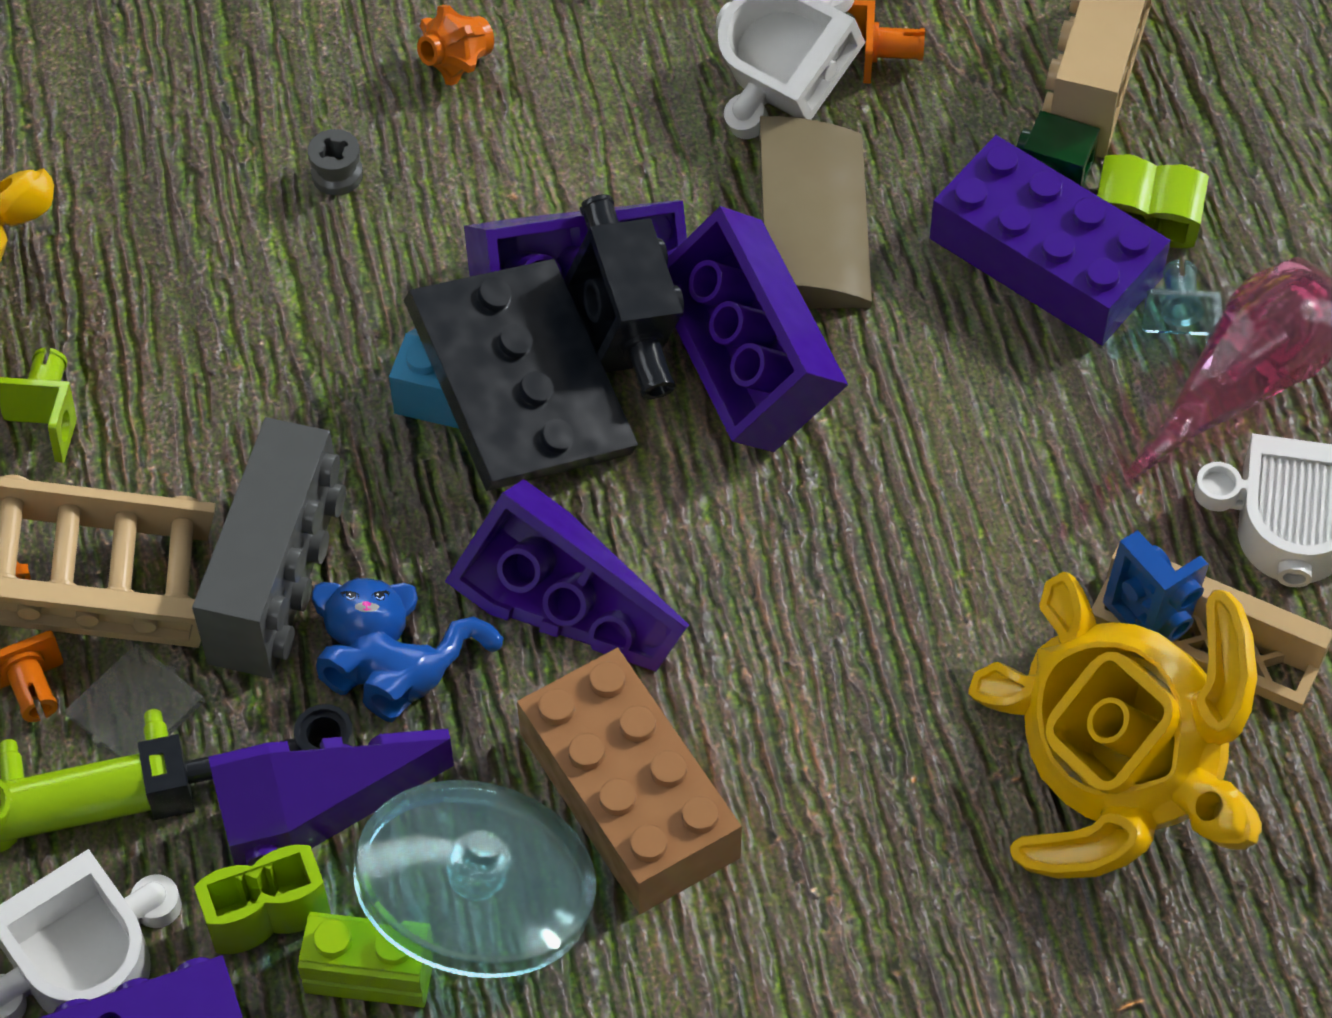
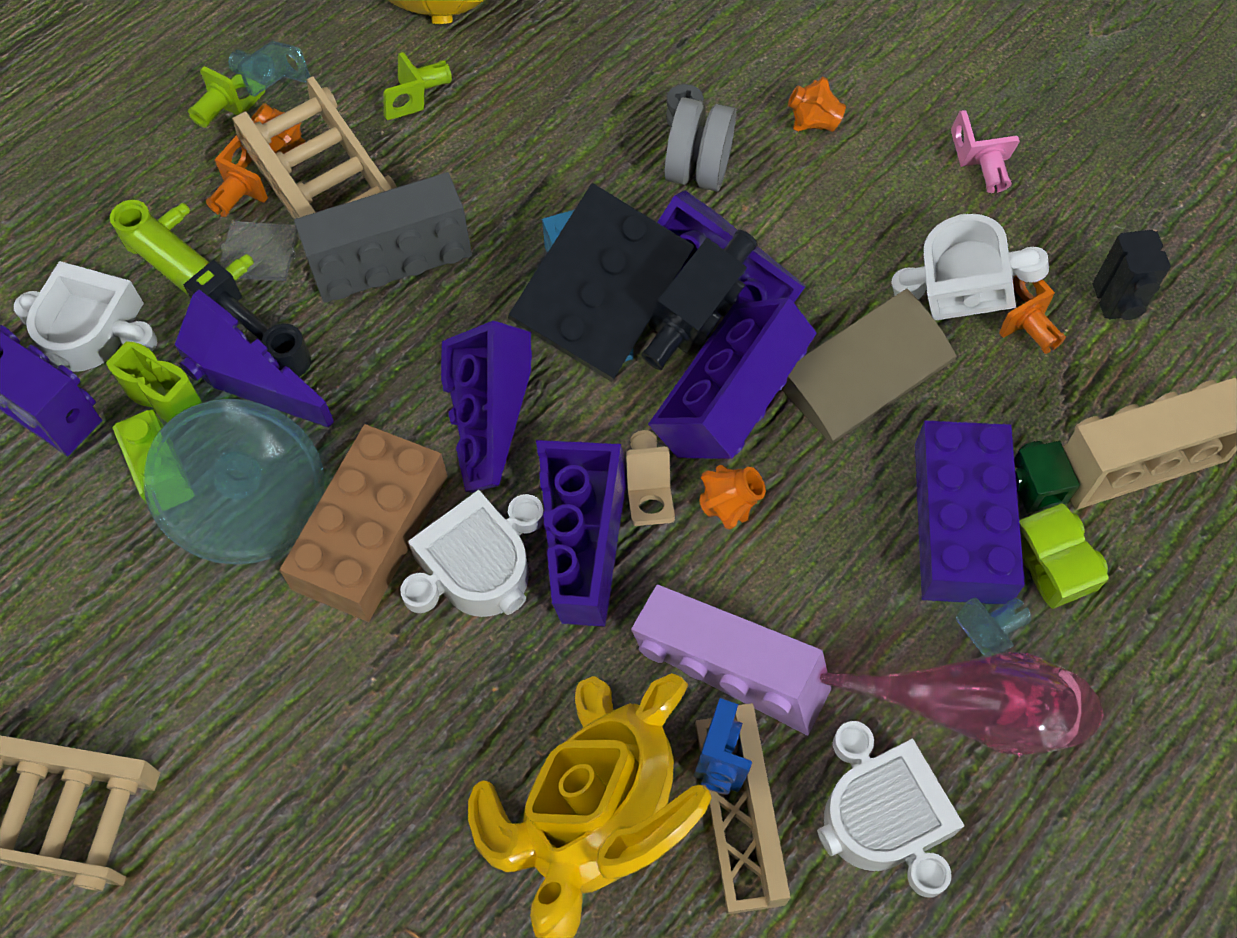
camera: 55 degrees right, 5 degrees up
(367, 622) = (381, 319): blue animal -> none
(420, 171) = (699, 144): none -> light grey wheel
(758, 697) = (474, 557): none -> white piece
(788, 486) = (648, 479): none -> tan bracket
(800, 573) = (582, 520): none -> dark purple wedge
(871, 420) = (731, 493): none -> orange rock
(1053, 528) = (735, 656): none -> lavender wedge

